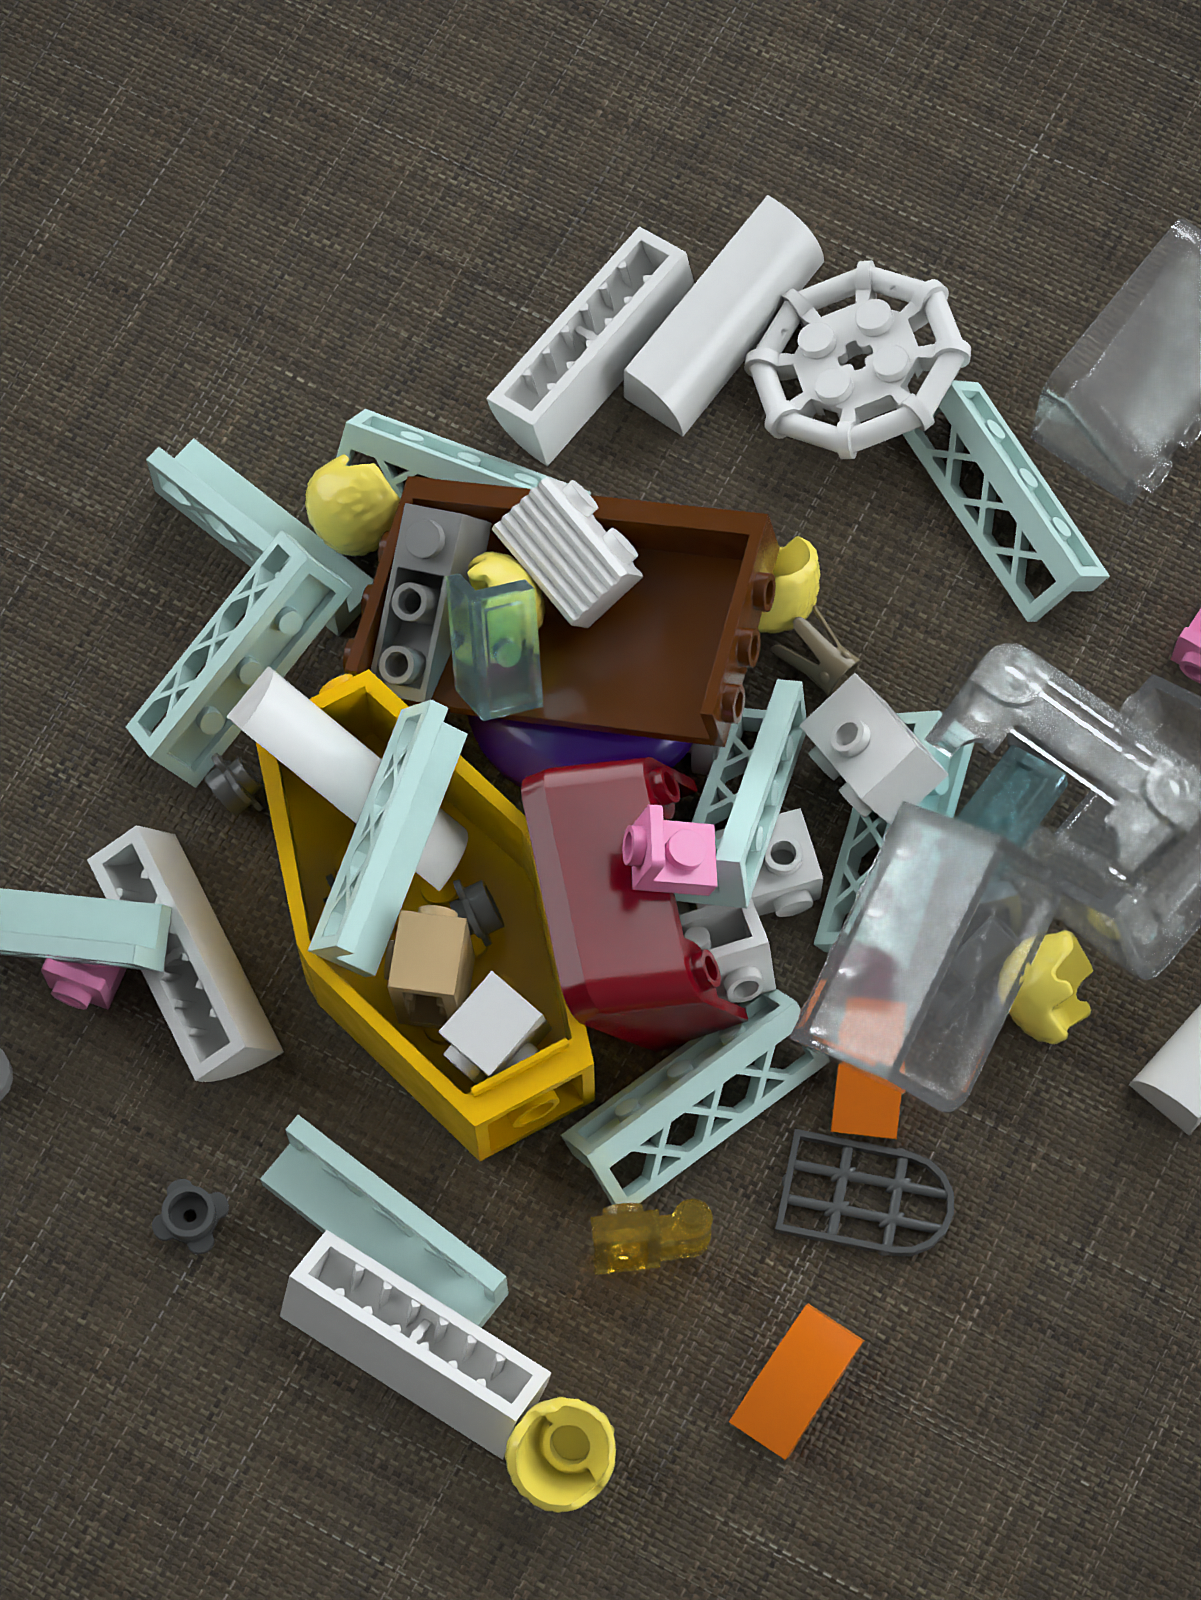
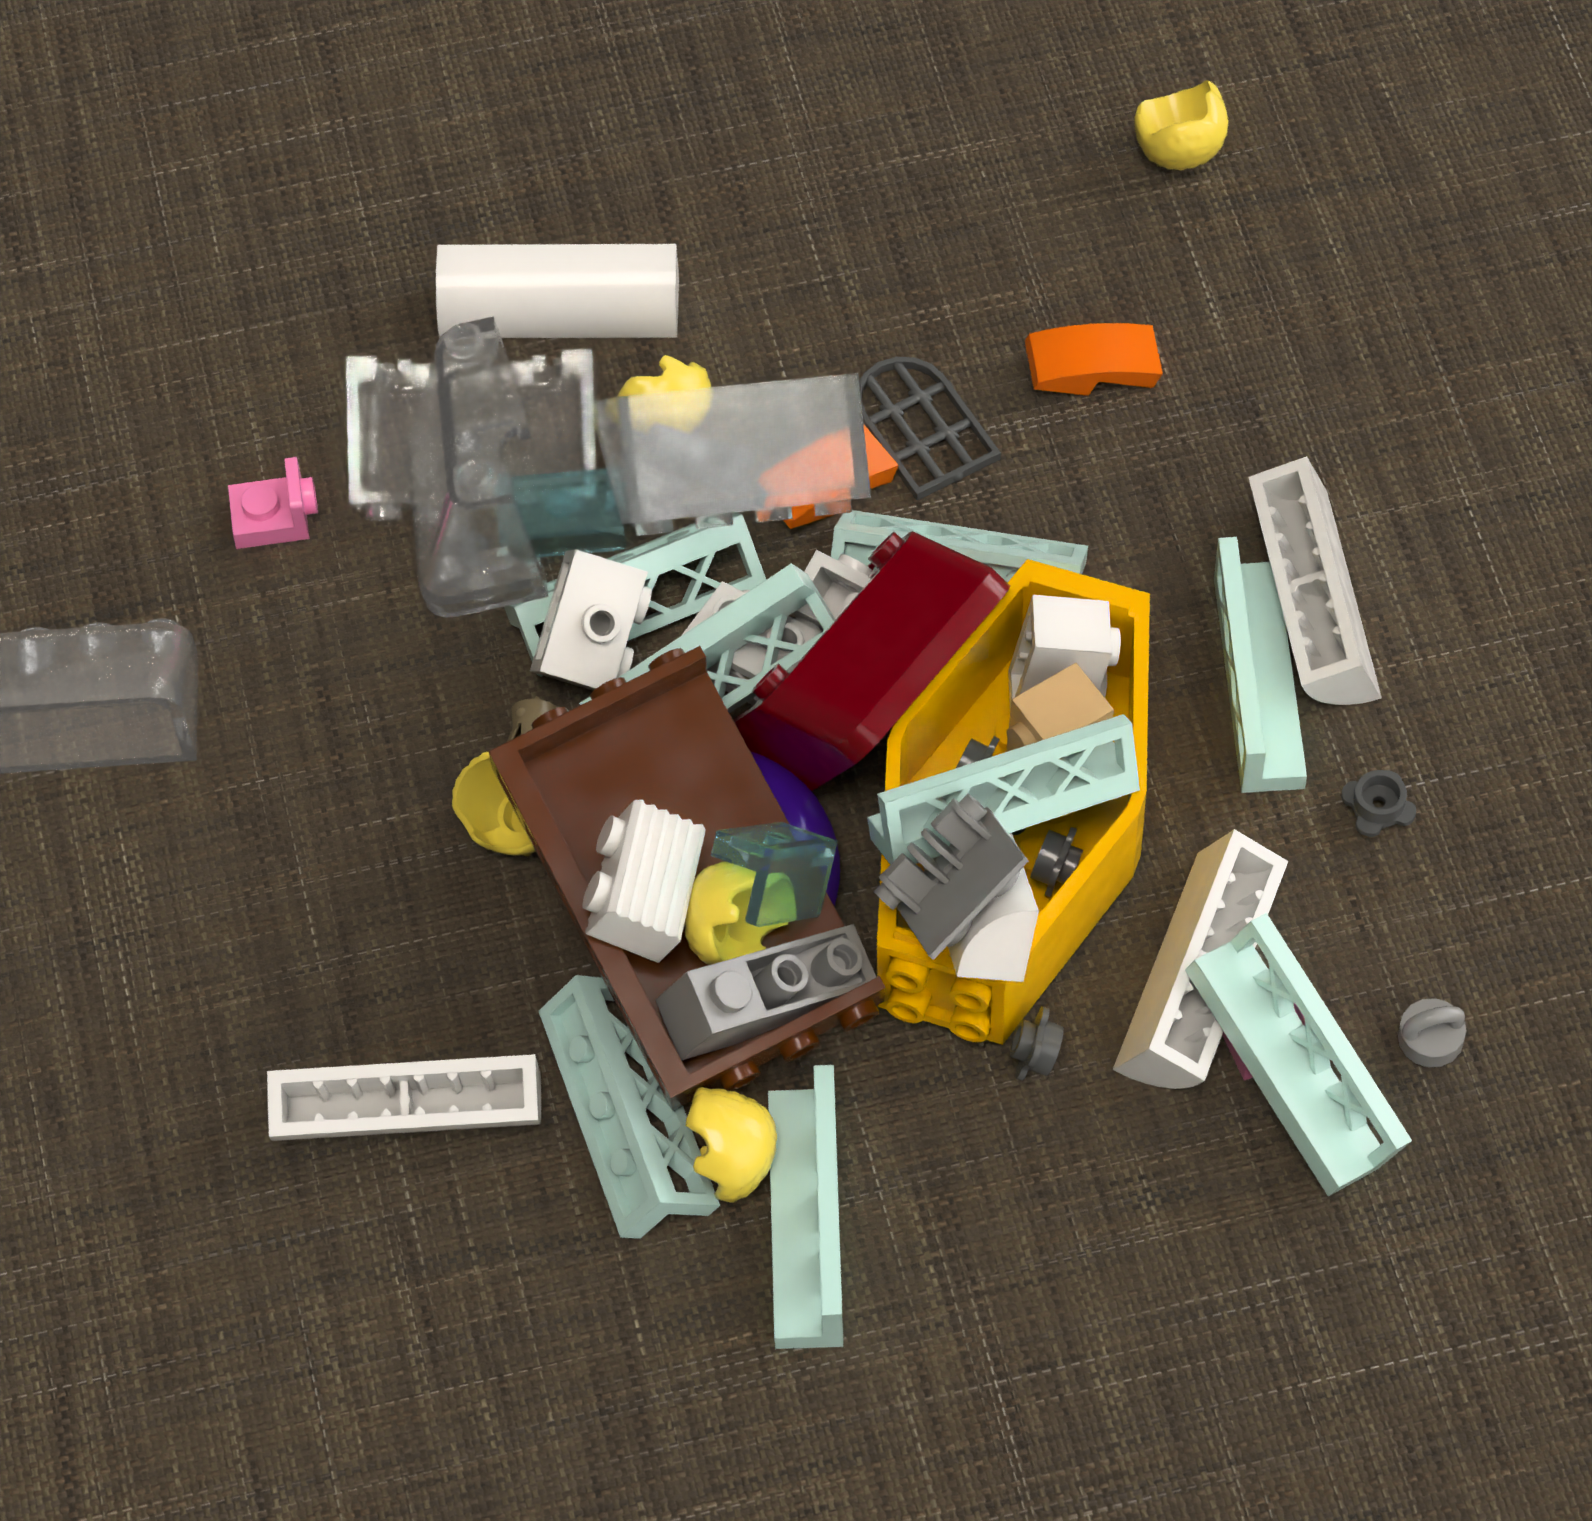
camera: 130 degrees left, 10 degrees down
(276, 630) = (943, 1084): light aqua fence -> none
(337, 721) = (960, 882): none -> light grey hinge
(561, 1454) = (1296, 427): light yellow hair -> none
(640, 1239) = (1101, 481): clear yellow plate -> none
(670, 854) = (831, 606): bright pink bracket -> none
(722, 317) = (248, 1041): white brick -> none
(855, 330) = (240, 857): white plate -> none
(1023, 492) = (256, 720): light aqua fence -> none

